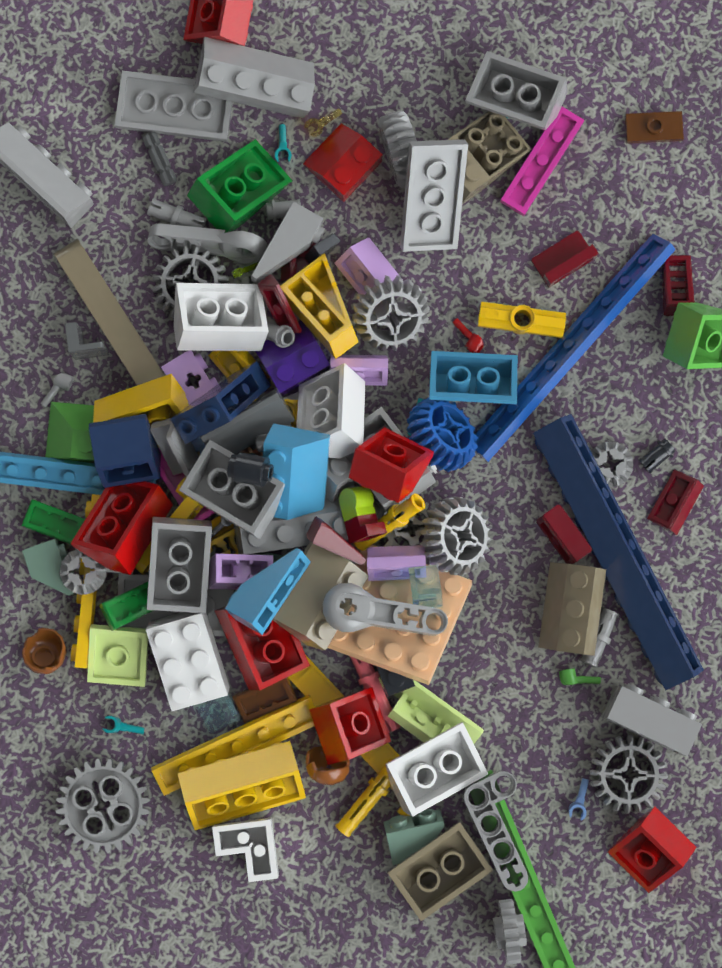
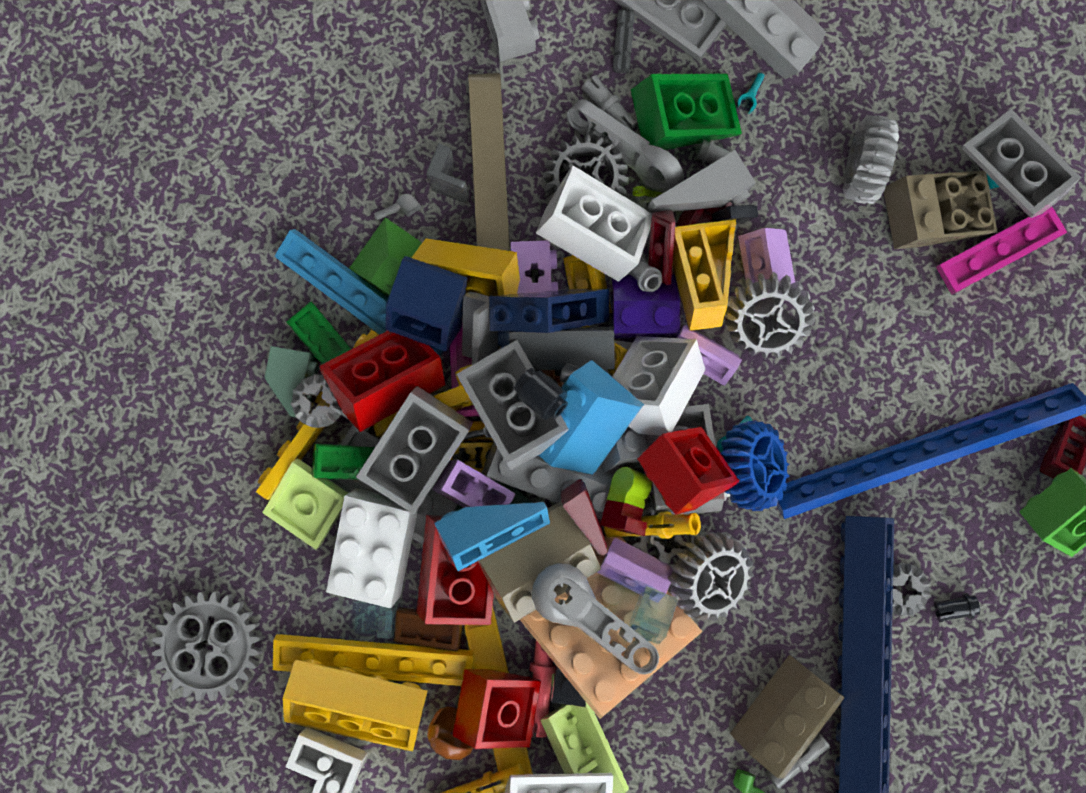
camera: 30 degrees right, 0 degrees up
(40, 660) = (227, 458): dark orange hair -> none
(121, 726) = (272, 576): teal hand -> none
(322, 122) = (802, 93): clear yellow hand -> none
(343, 161) = (804, 142): red slope -> none
(433, 195) = (881, 220): plate -> none
(473, 377) = (818, 426): dark azure slope -> none
(475, 342) = (835, 391): red hand -> none
(540, 321) = (912, 406): yellow piece -> none
(564, 258) = (970, 358): dark red panel -> none
(564, 535) = (819, 636): dark red slope -> none
(675, 501) = (949, 664): dark red slope -> none

